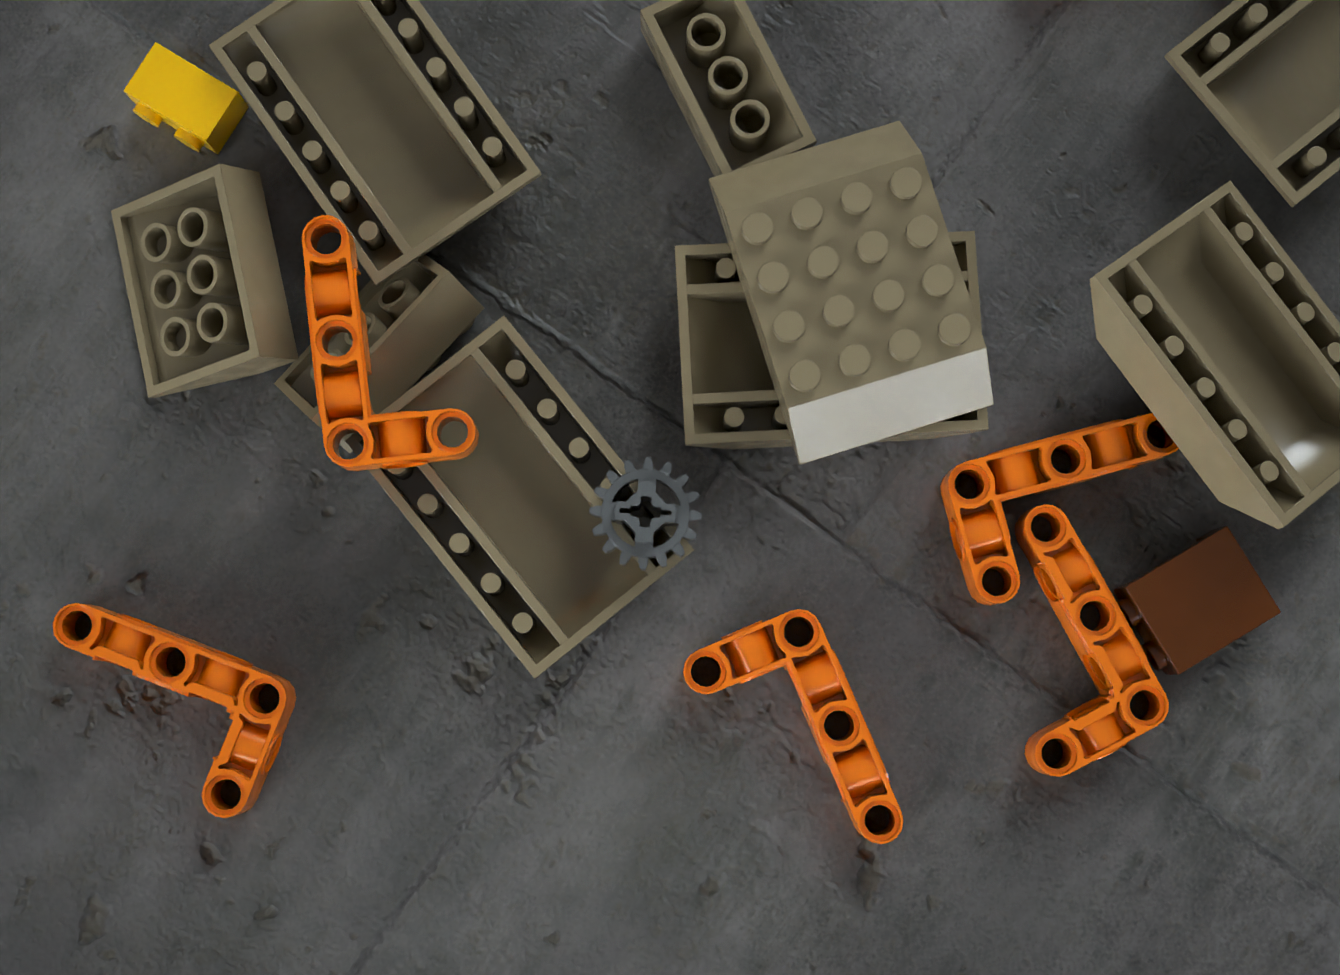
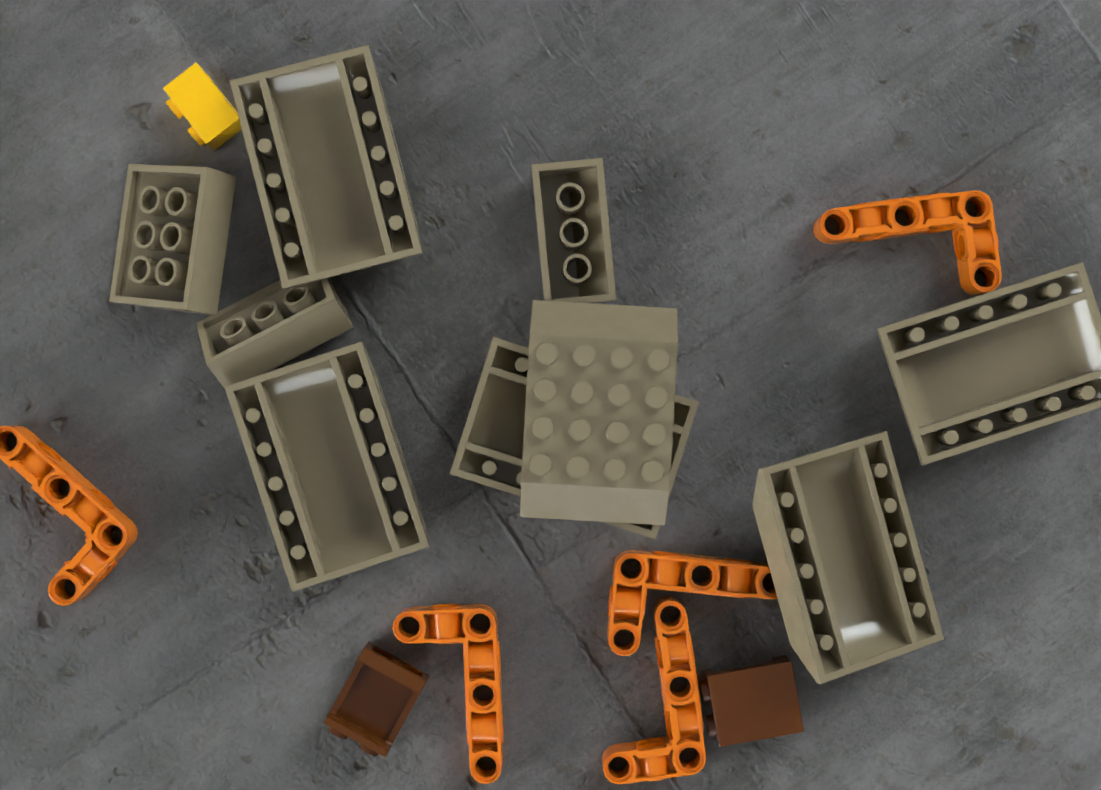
camera: 20 degrees right, 5 degrees up
(342, 381) = (234, 351): orange beam -> none
(671, 514) = (397, 528): dark grey gear -> none
(697, 790) = (375, 700): none -> reddish brown panel

